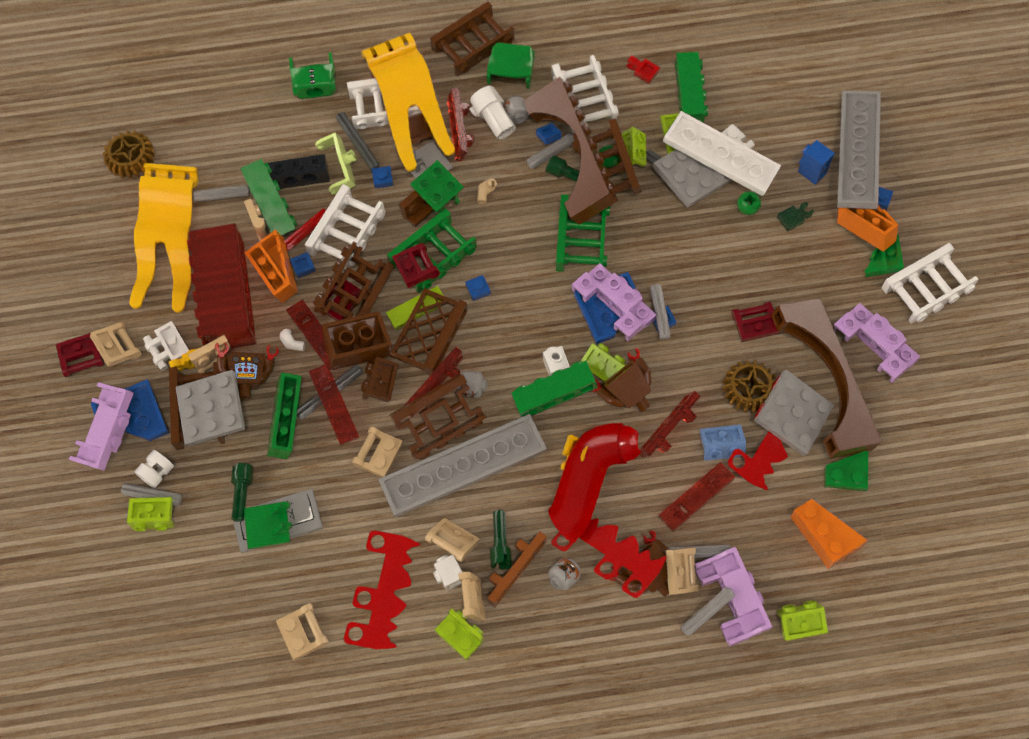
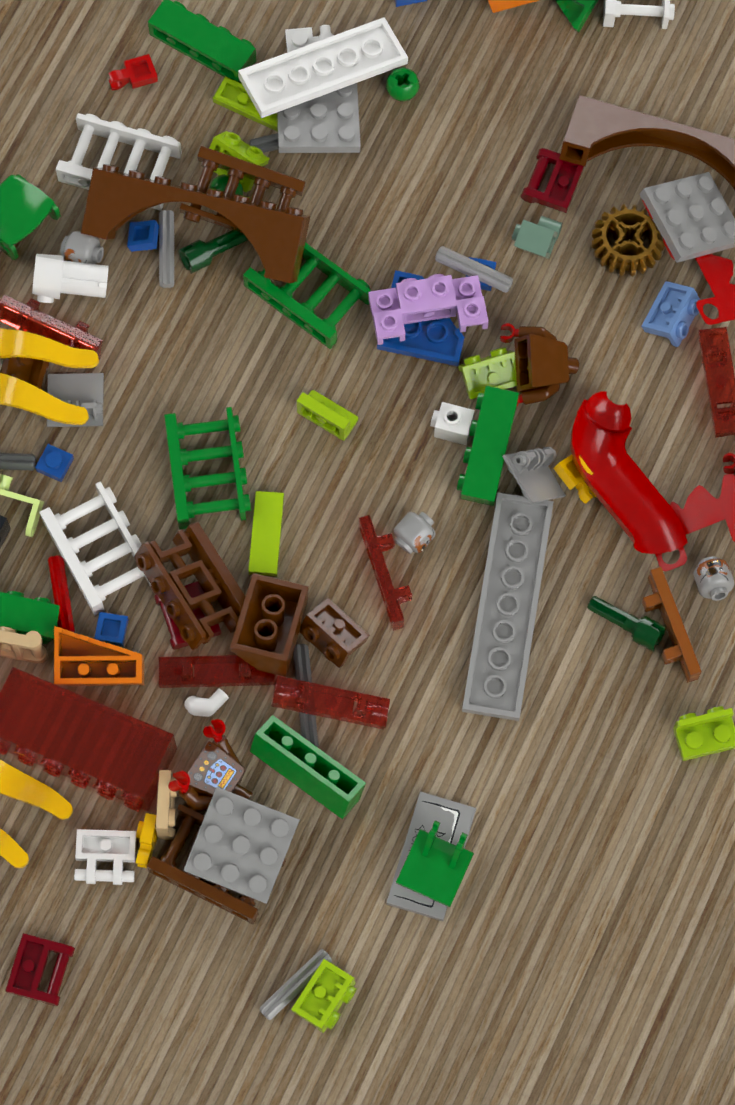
camera: 60 degrees left, 5 degrees up
(107, 427) = (180, 983): lavender bracket -> none
(110, 347) = (60, 923): tan plate -> none
(146, 417) = (168, 946): blue plate -> none
(150, 475) = (268, 960): white wheel -> none
(241, 479) = (352, 865): dark green piece -> none
(295, 635) = (588, 916): tan plate -> none
(383, 456) = (431, 685): tan plate -> none
(383, 601) = (610, 795): red piece -> none
(409, 267) = (219, 504): dark red plate -> none
(415, 209) = (133, 442): reddish brown bracket -> none
(430, 403) = (413, 592): reddish brown fence -> none
(437, 186) = (131, 404): green plate -> none
(445, 336) = (333, 525): reddish brown fence -> none
(447, 572) = (628, 700): white brick -> none
(452, 538) = (593, 670): tan plate -> none
(472, 597) = (669, 687): tan plate -> none
(478, 288) = (290, 448): blue plate -> none
(484, 189) = (162, 356): tan arm -> none
(511, 292) = (326, 414): none -> lime bracket
(554, 427) = (534, 475): none -> light grey hinge
(681, 411) = (609, 339): clear red hinge -> none
(706, 333) = (537, 238): none -> sand green hinge
(794, 217) = (451, 51): clear green plate -> none
(880, 338) = (667, 69): lavender bracket -> none

